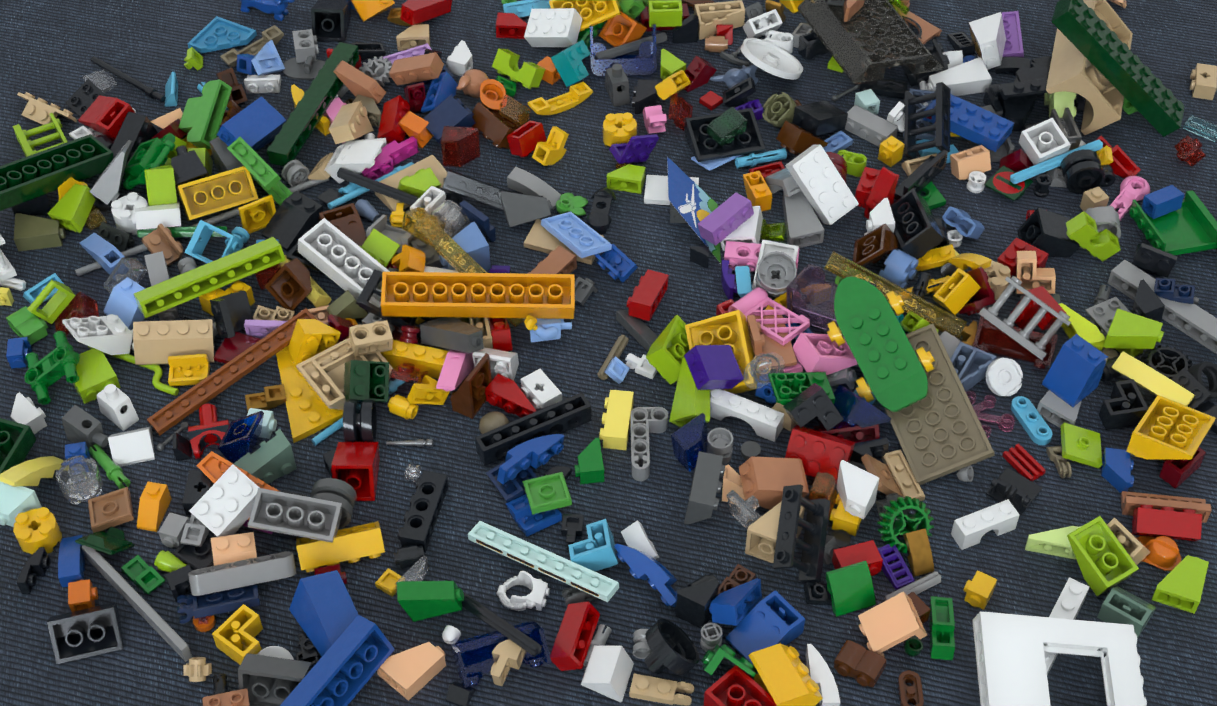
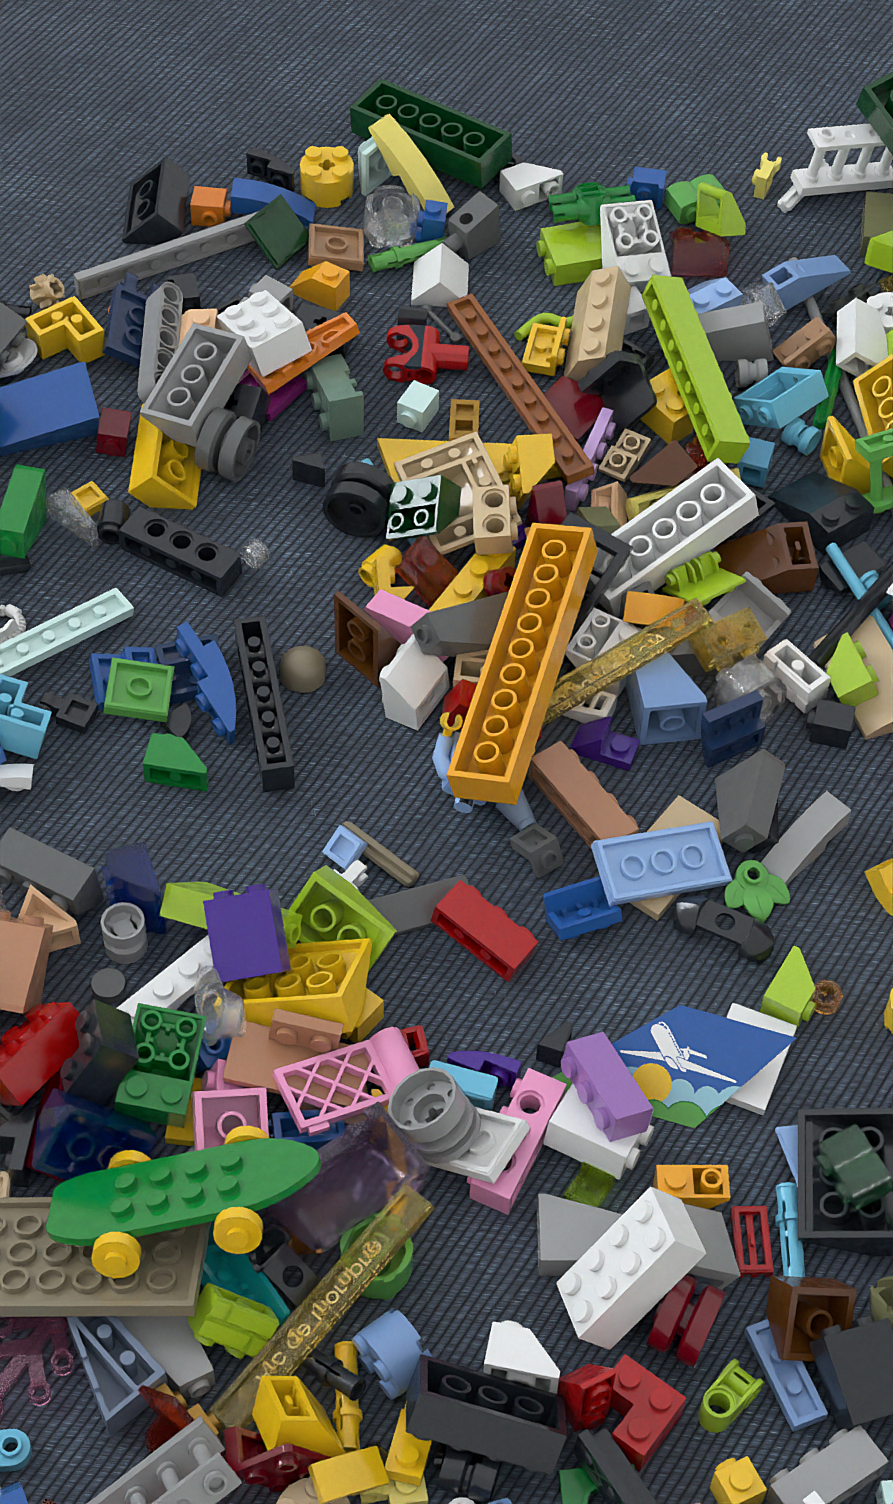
camera: 105 degrees right, 5 degrees up
(31, 294) = (767, 227): medium azure slope -> none
(112, 402) = (503, 264): white torso -> none
(142, 575) = (221, 269): green slope -> none
(168, 562) = (224, 288): lime cone -> none
(241, 436) = (383, 371): clear blue slope -> none
(358, 466) = (286, 489): red slope -> none
(366, 210) = (820, 603): sand blue cone -> none
(396, 217) = (803, 641): yellow piece -> none
(419, 443) = (313, 577): flat silver piece -> none
(473, 188) = (810, 740): fence -> none
(508, 396) = (344, 696): red slope -> none
(540, 390) = (339, 736): white brick -> none
(617, 419) = (242, 819): light yellow brick -> none
(635, 150) = (855, 1006): dark purple bracket -> none
(644, 421) = (147, 824): light grey beam -> none
(874, 246) = (443, 1311): reddish brown slope -> none
(1004, 377) = (72, 1433): white tile -> none

